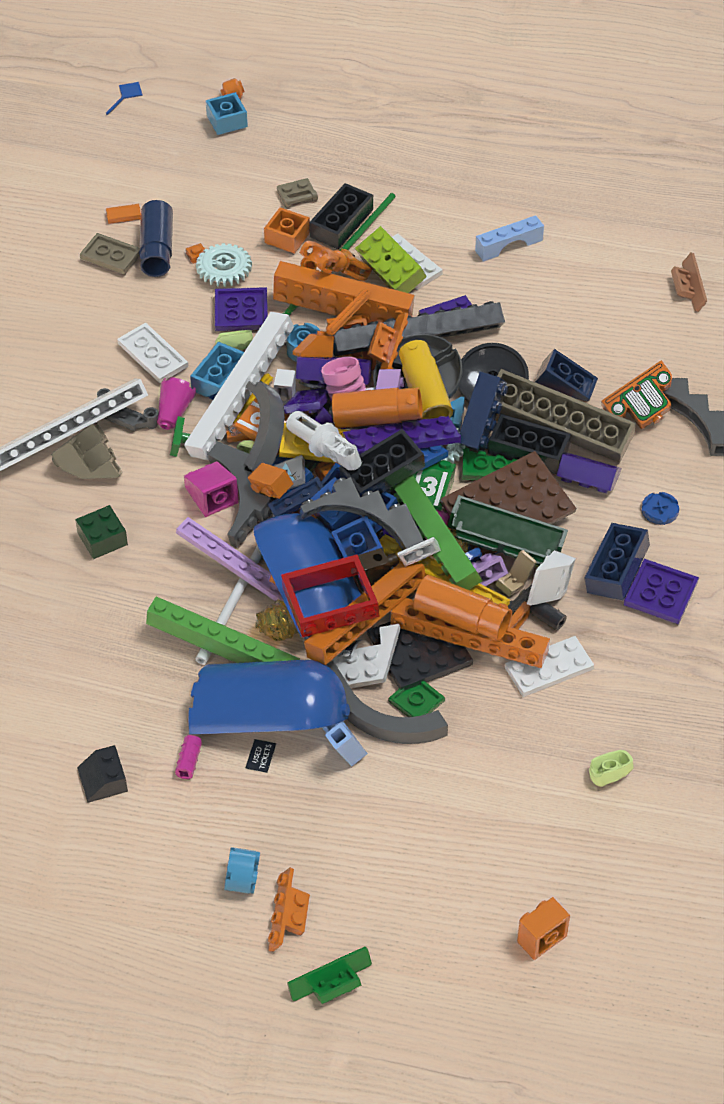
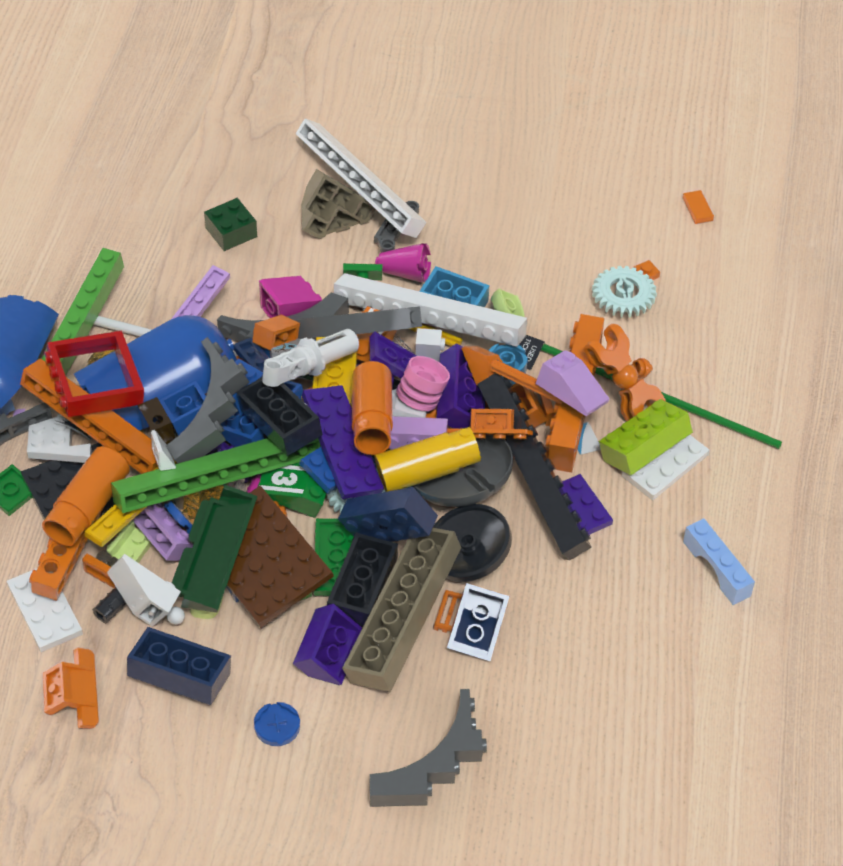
camera: 85 degrees right, 0 degrees up
(110, 253) = (629, 200): dark tan plate -> none
(152, 352) = (484, 245): white plate -> none
(156, 237) = (651, 228): dark blue piece -> none
(240, 308) = (556, 311): dark purple plate -> none
(286, 230) = (687, 341): orange brick -> none
(296, 192) = (768, 349): dark tan plate -> none
(341, 216) = (722, 390): black brick -> none
(357, 282) = (572, 383): none -> lavender slope
(518, 575) = (159, 566): tan bracket -> none
(634, 642) = (73, 687): none -> orange plate
(642, 396) = (440, 695): brick -> none
(661, 591) = (143, 718): dark purple plate -> none
(689, 282) = (672, 761): nougat bracket -> none

